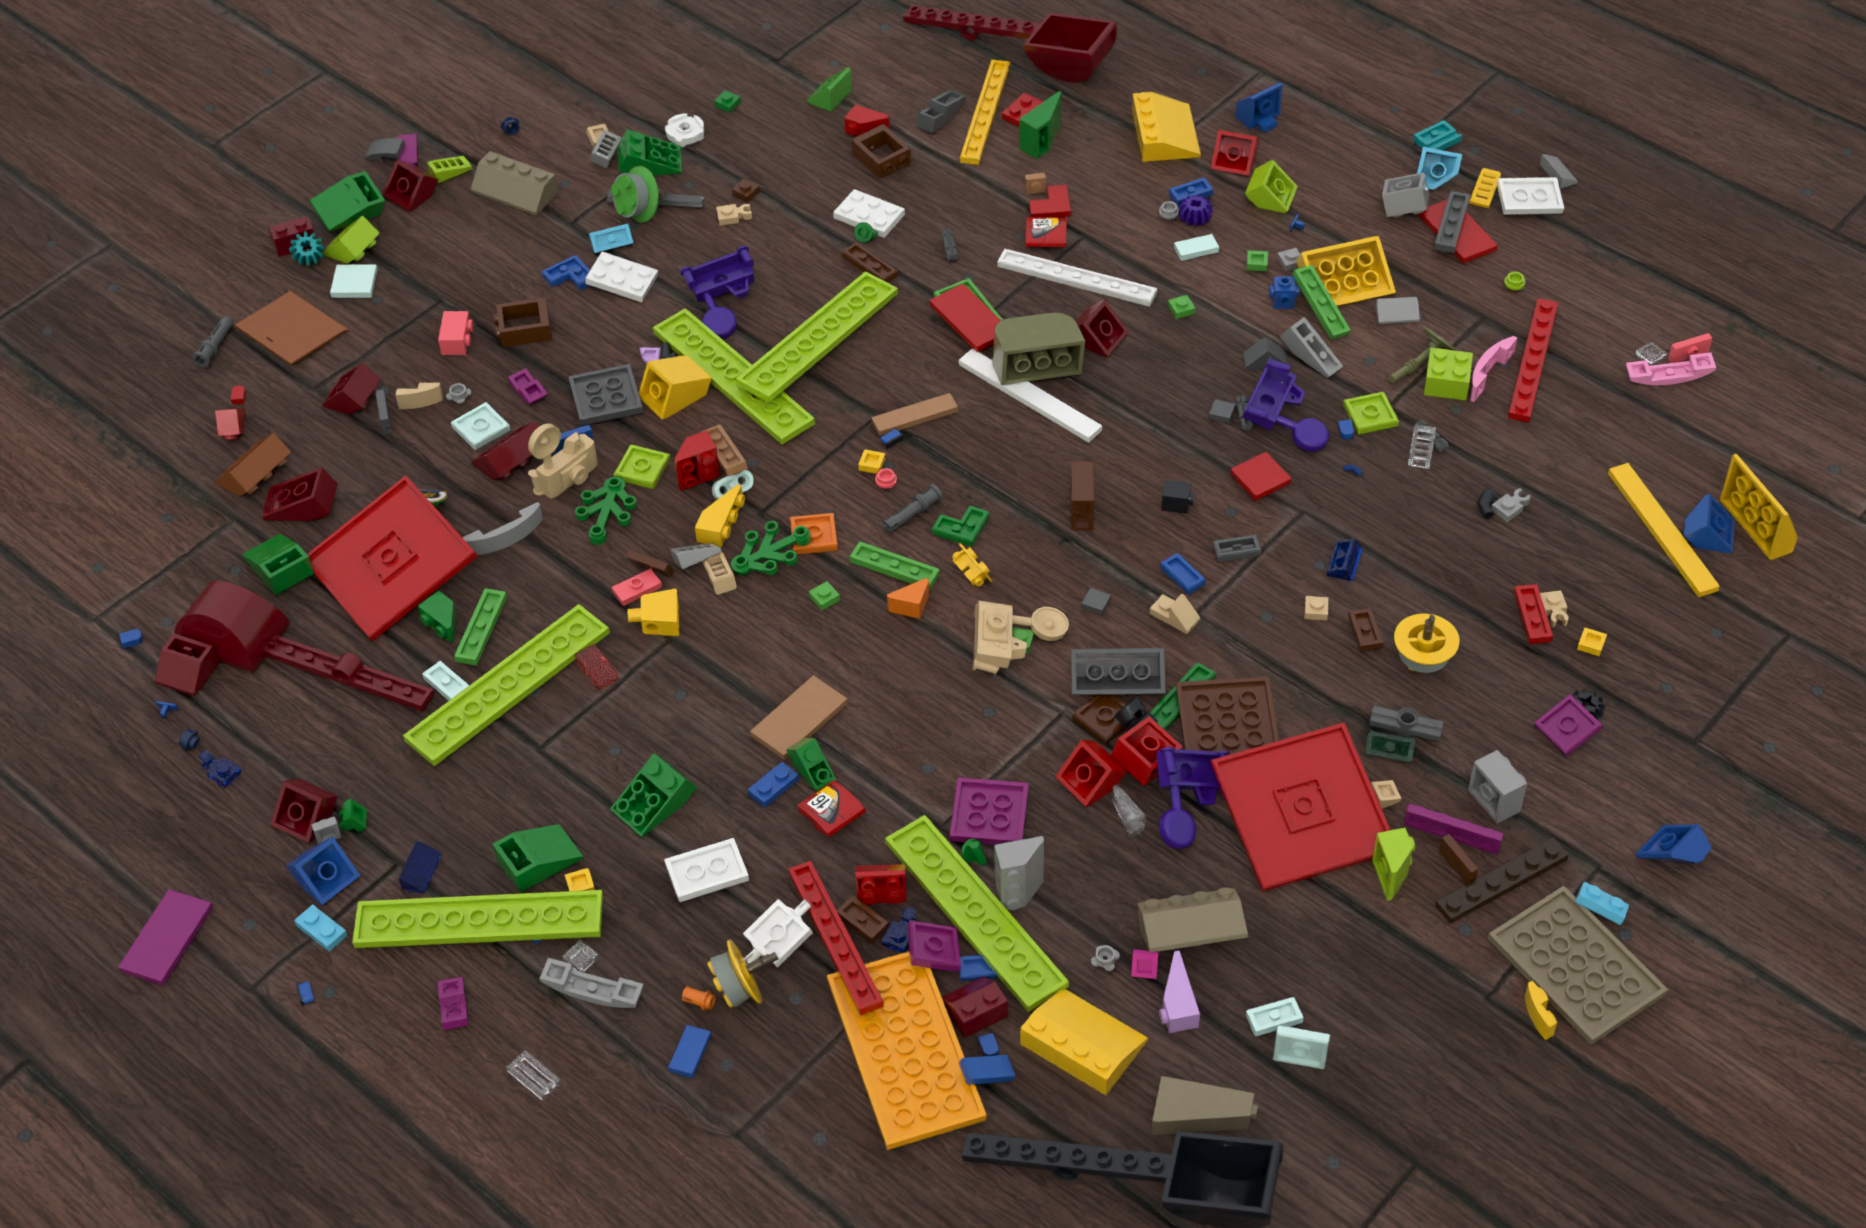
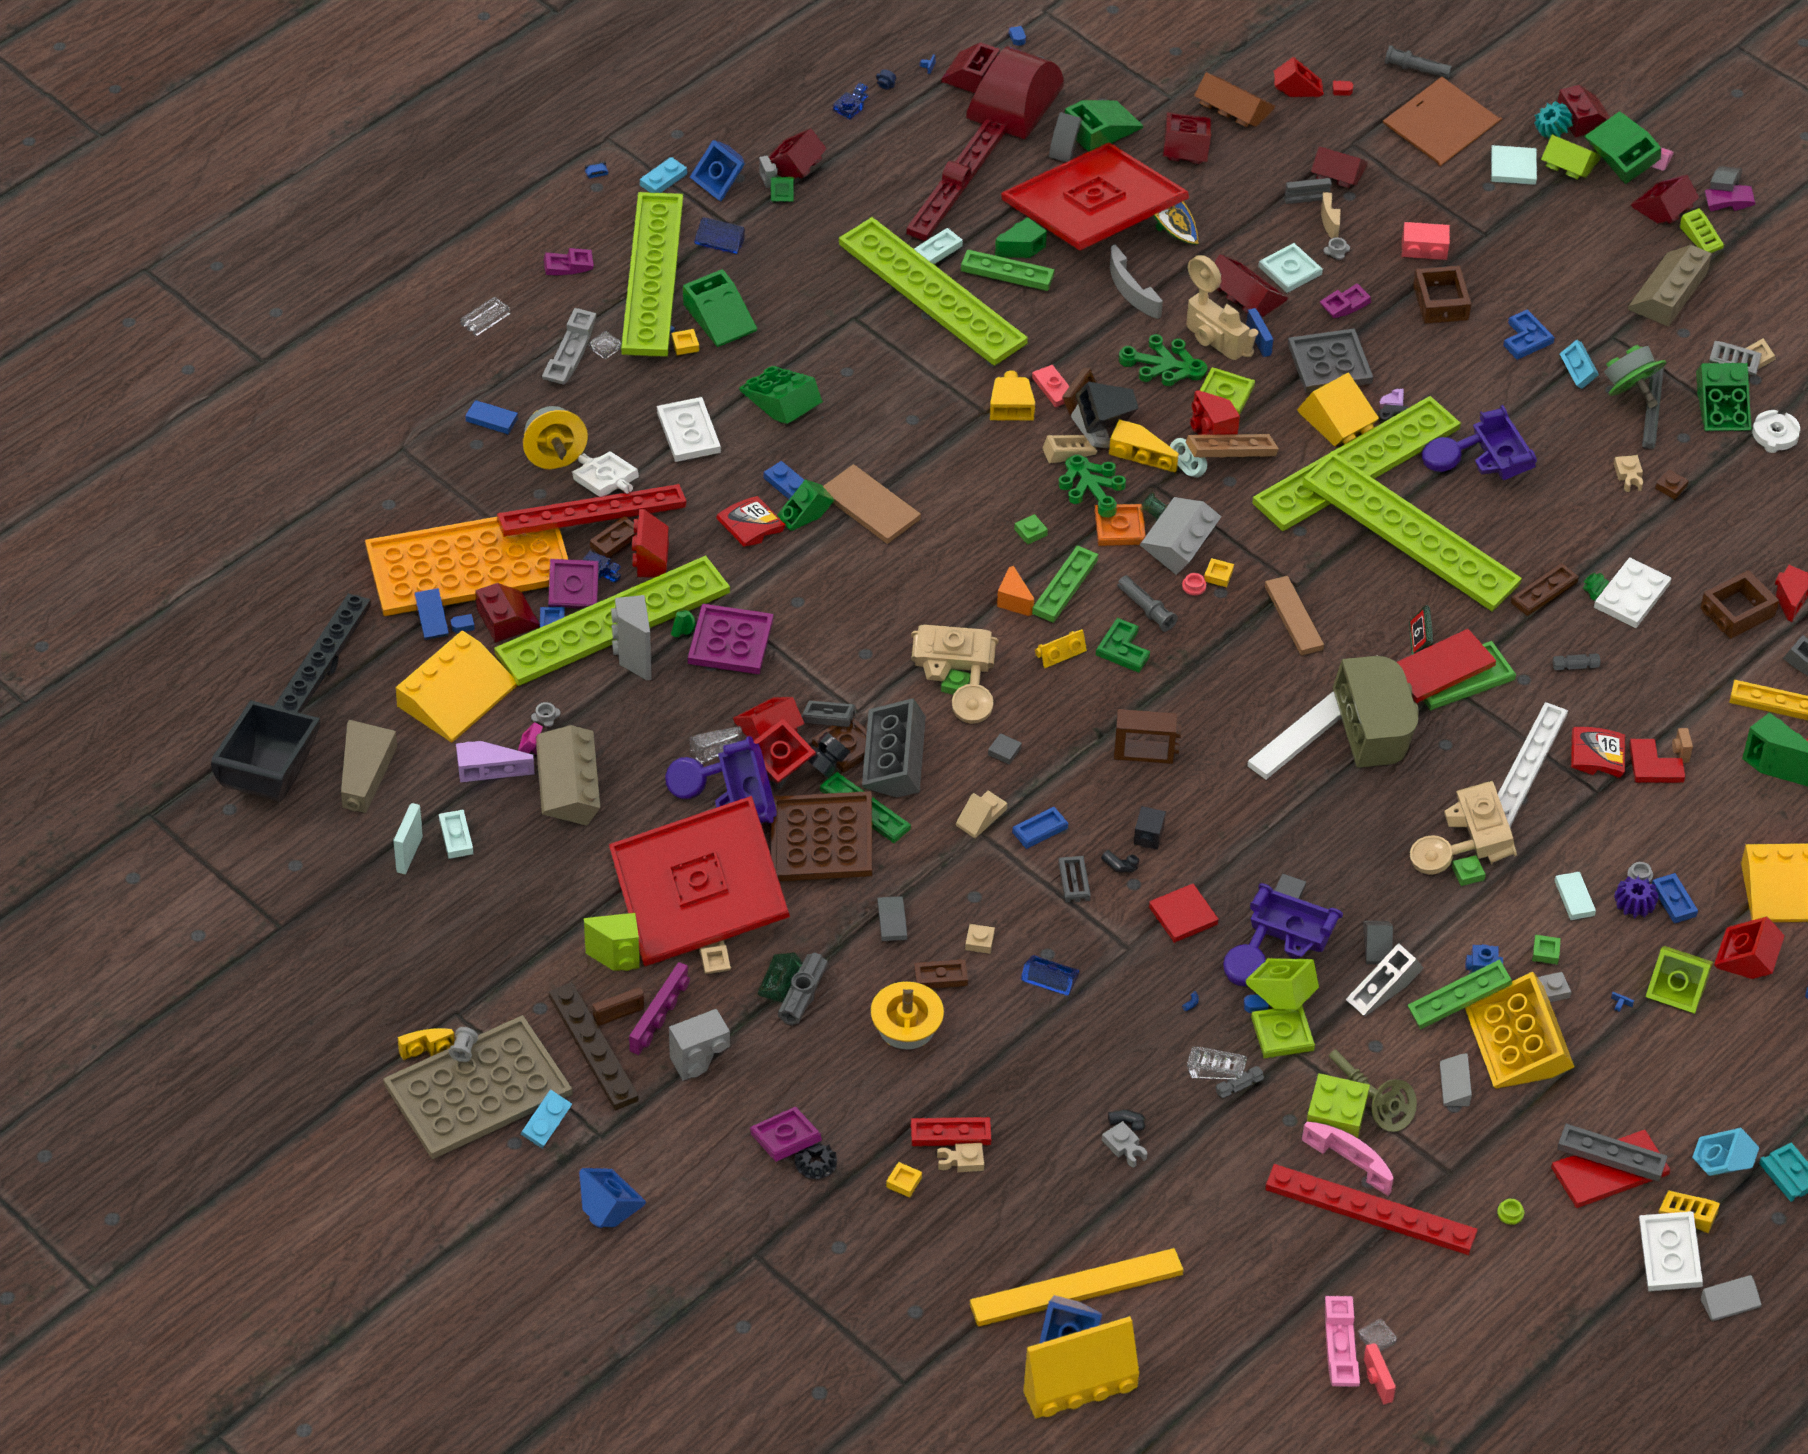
camera: 90 degrees right, 0 degrees up
(165, 937) = (668, 80): magenta tile -> none
(304, 582) = (1064, 137): none -> dark grey slope
(513, 128) = (1776, 281): dark blue plate -> none
(596, 666) = (950, 351): clear red slope -> none
(621, 276) = (1516, 374): white plate -> none
(683, 536) = (1104, 405): none -> black slope
(800, 502) = (1153, 506): none -> clear green bush
(834, 480) = (1180, 532): none -> light grey slope
(892, 438) = (1258, 594): piece -> none
(930, 332) = (1421, 630): none -> slope
(1085, 726) = (828, 713): none -> dark grey tile
(1101, 328) = (1422, 783): dark red slope -> none
(1145, 286) = (1487, 825): none -> tan piece
(1216, 517) = (1120, 865): none -> black arm
(1313, 665) = (892, 918): none -> dark grey slope
(1333, 400) = (1284, 982): none -> lime slope
(1405, 195) = (1663, 1110): light grey slope -> none
(1545, 970) = (463, 1044): none -> light grey bush

